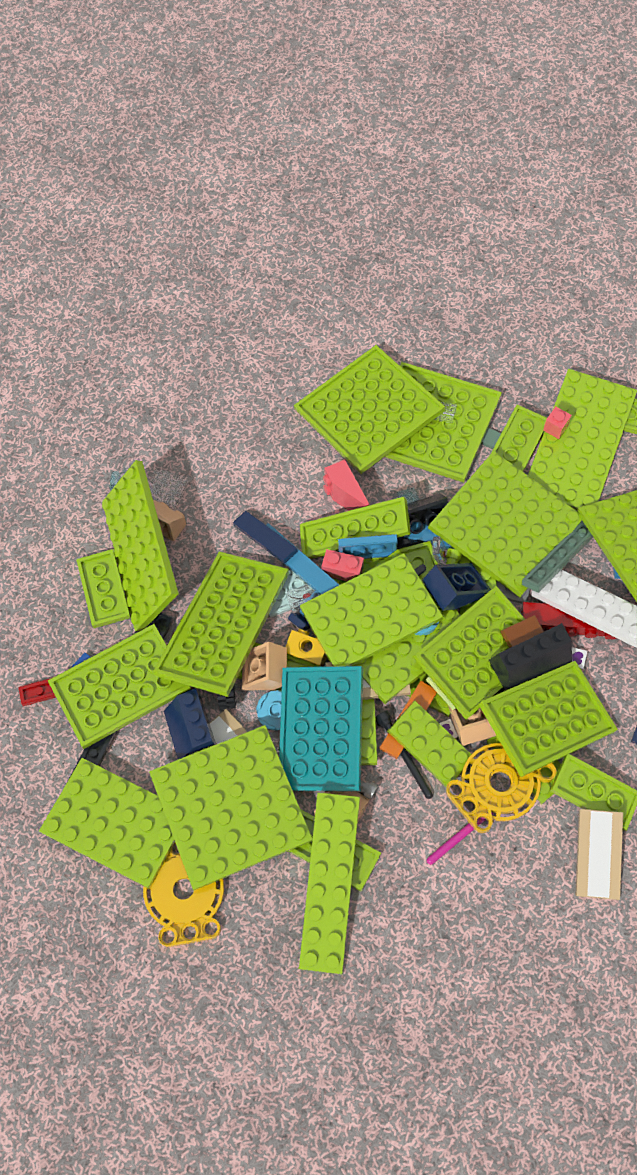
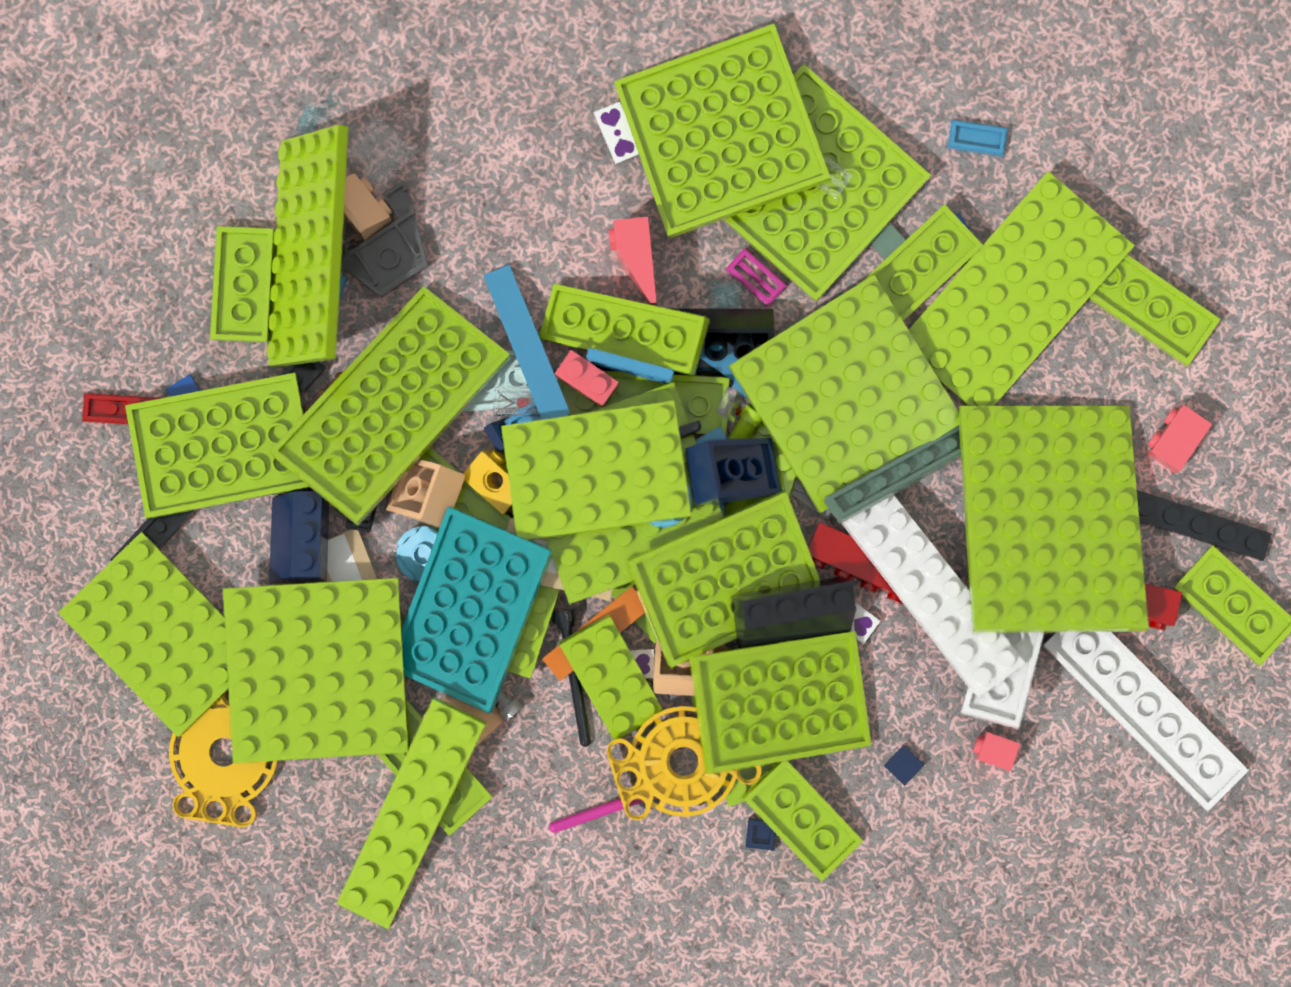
camera: 20 degrees right, 20 degrees up
(192, 540) = (393, 252): none -> dark grey wing
(265, 537) = (495, 289): dark blue tile -> none
(306, 433) = (616, 133): none -> white tile
(406, 483) = (773, 293): none -> dark pink tile
(518, 369) = (977, 138): none -> dark azure tile
(522, 631) = (795, 570): dark orange tile -> none
(557, 422) = (986, 263): coral brick -> none
(569, 814) = (760, 835): none -> dark blue tile
(599, 854) = (771, 899): tile -> none

